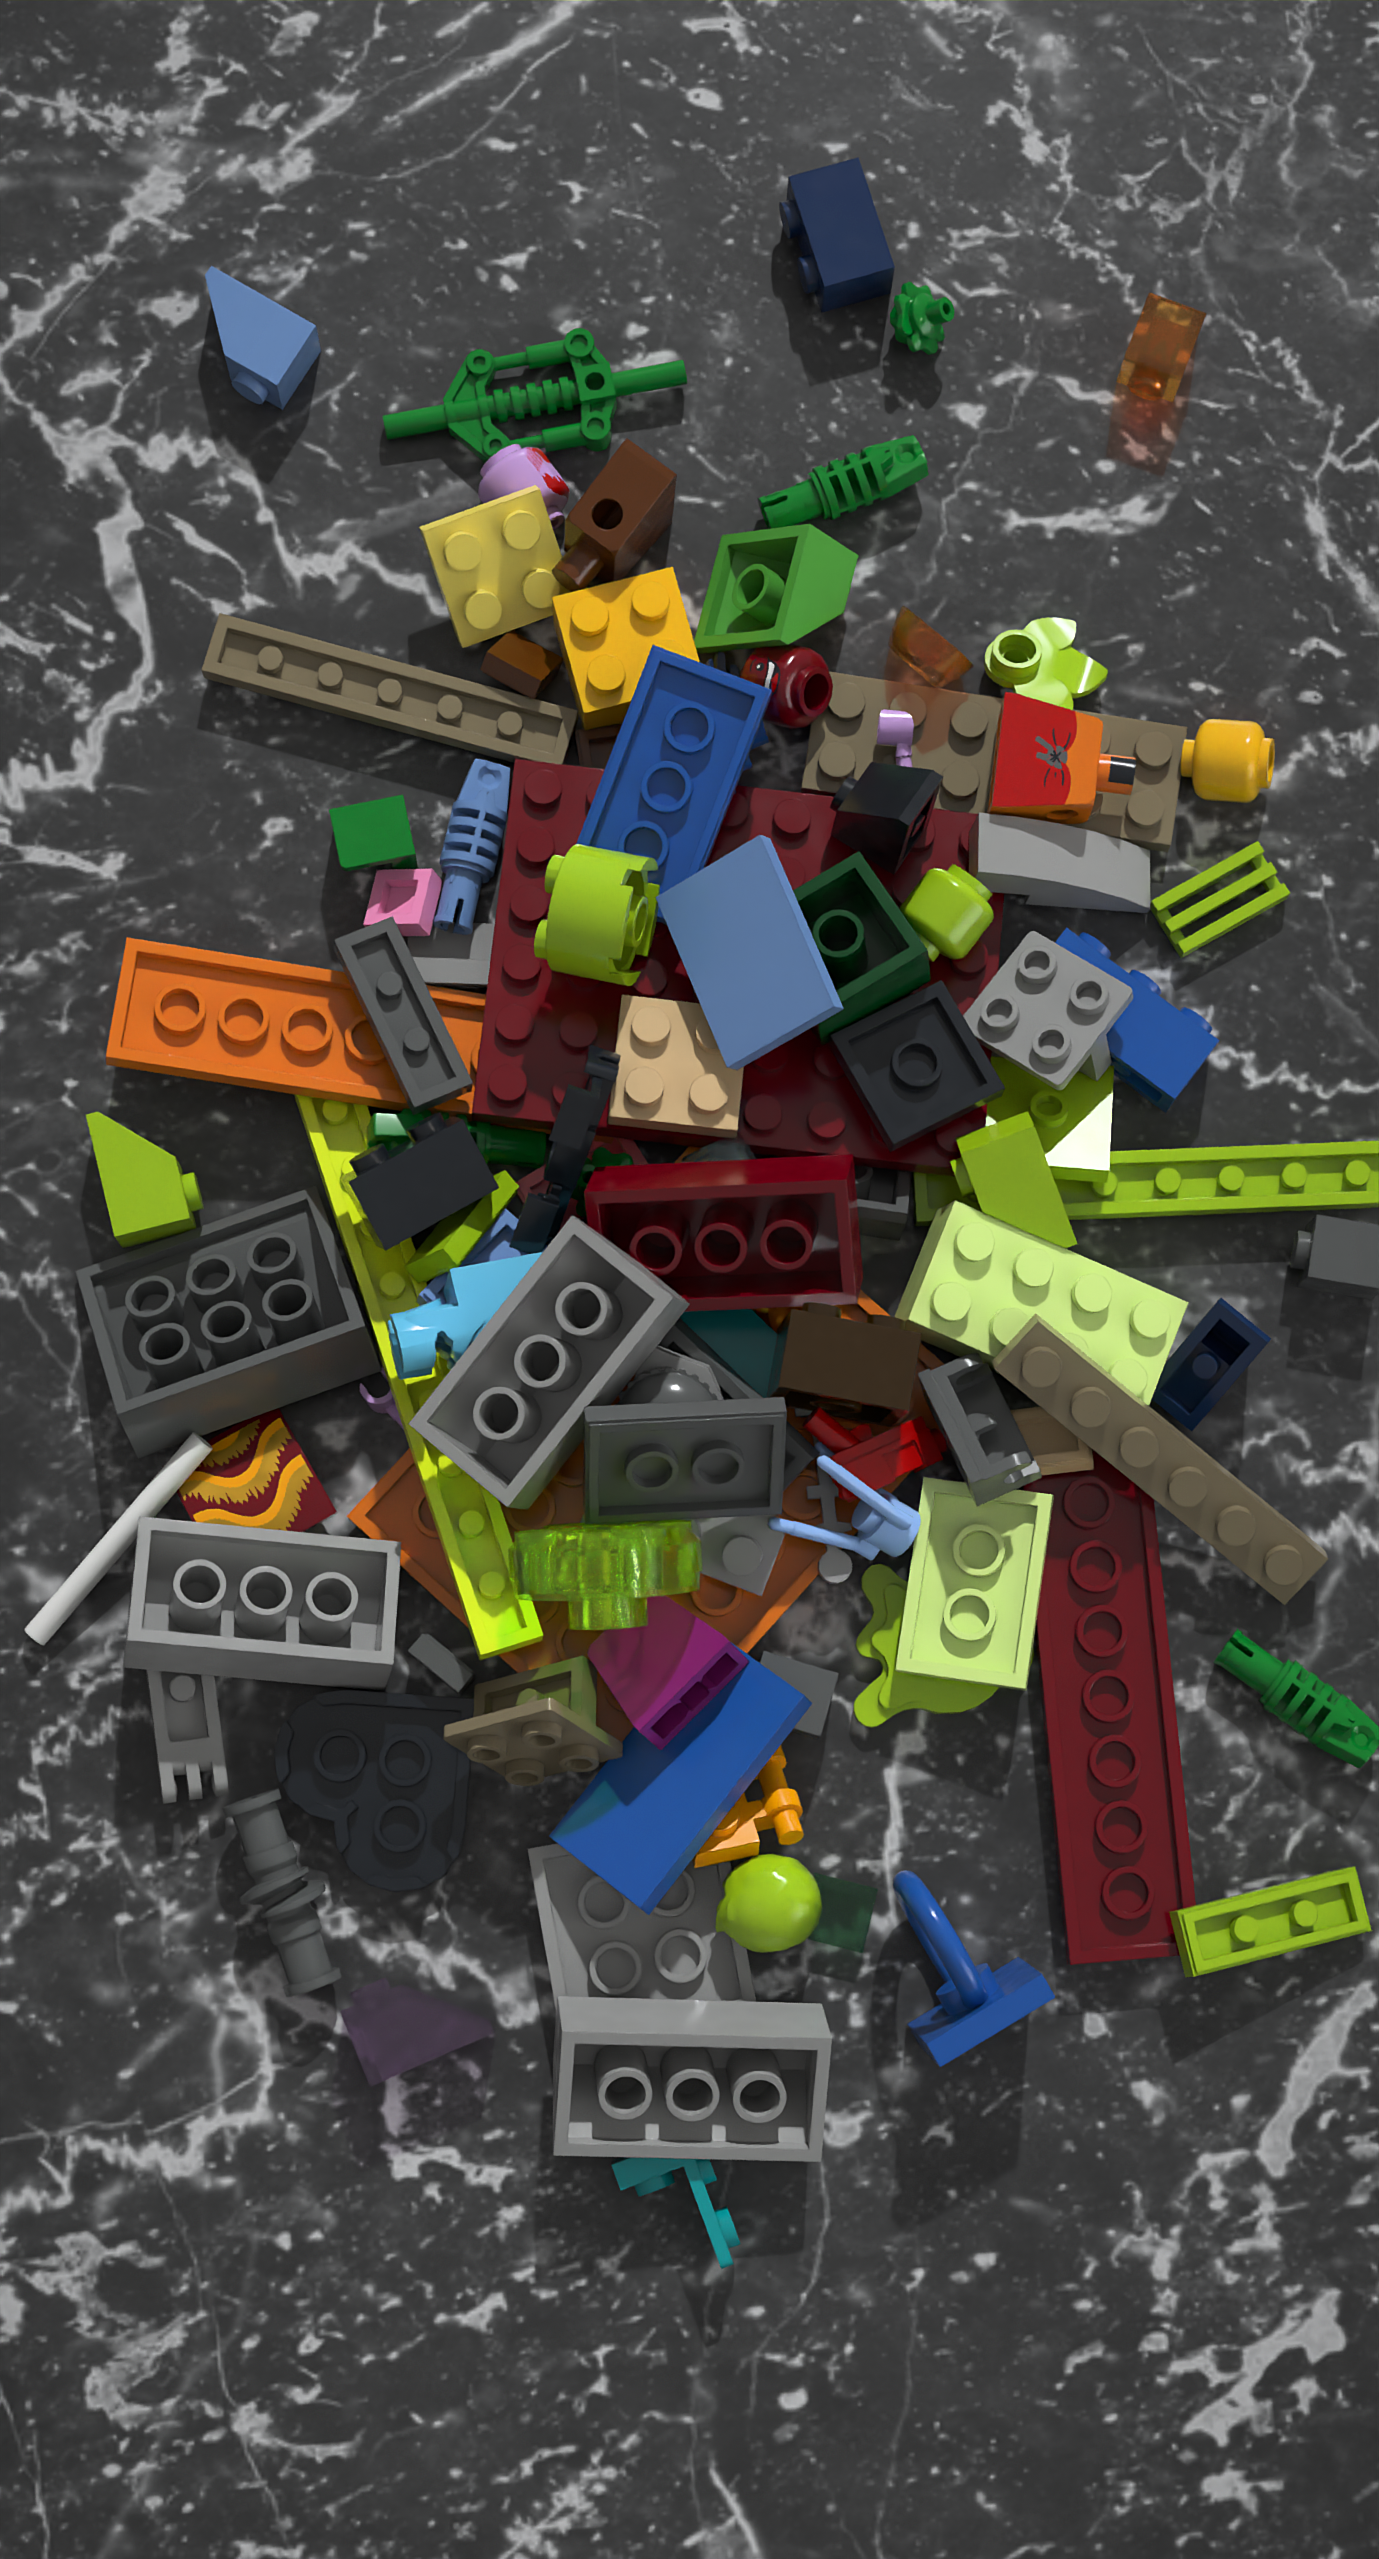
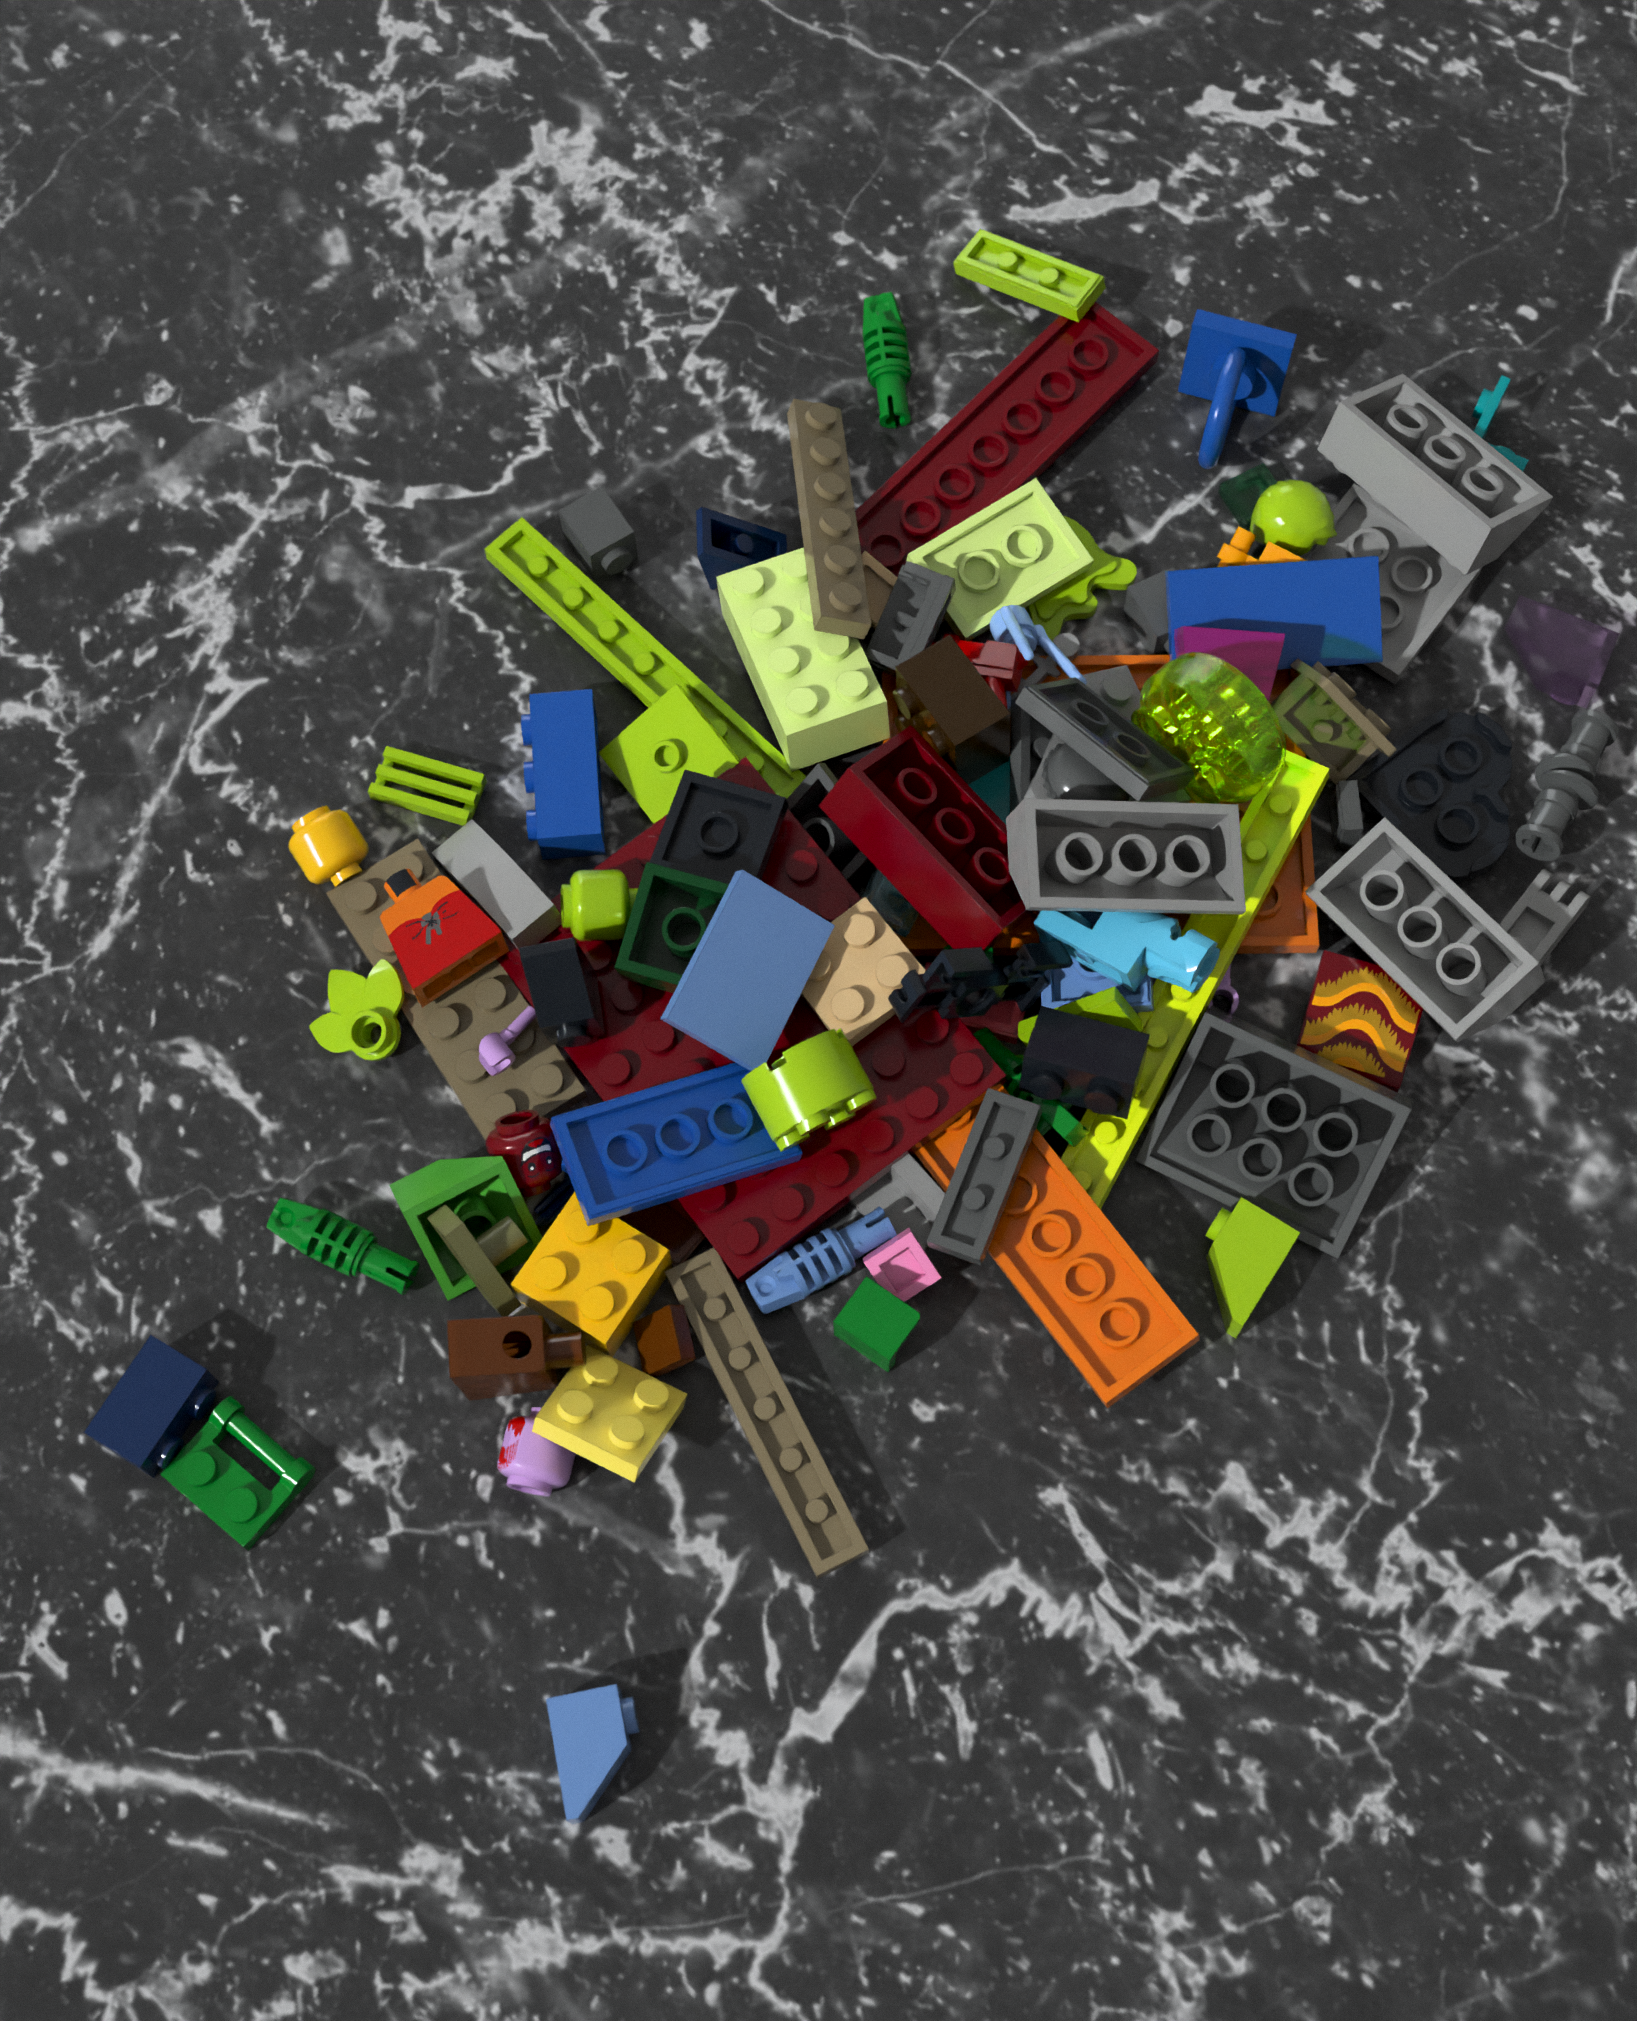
camera: 125 degrees left, 10 degrees down
(117, 1539) = (1470, 1068): white bar -> none
(469, 411) = (416, 1476): green bar -> none
(719, 562) = (482, 1255): none -> olive tile
(721, 246) = (224, 1487): none -> green plate
(920, 318) = (170, 1299): green plant -> none
(926, 650) = (418, 1086): clear orange hat -> none
(1013, 1178) = (736, 722): lime slope -> none
(1049, 1012) = (606, 796): light grey bracket -> none
(1160, 348) = (60, 1123): clear orange brick -> none

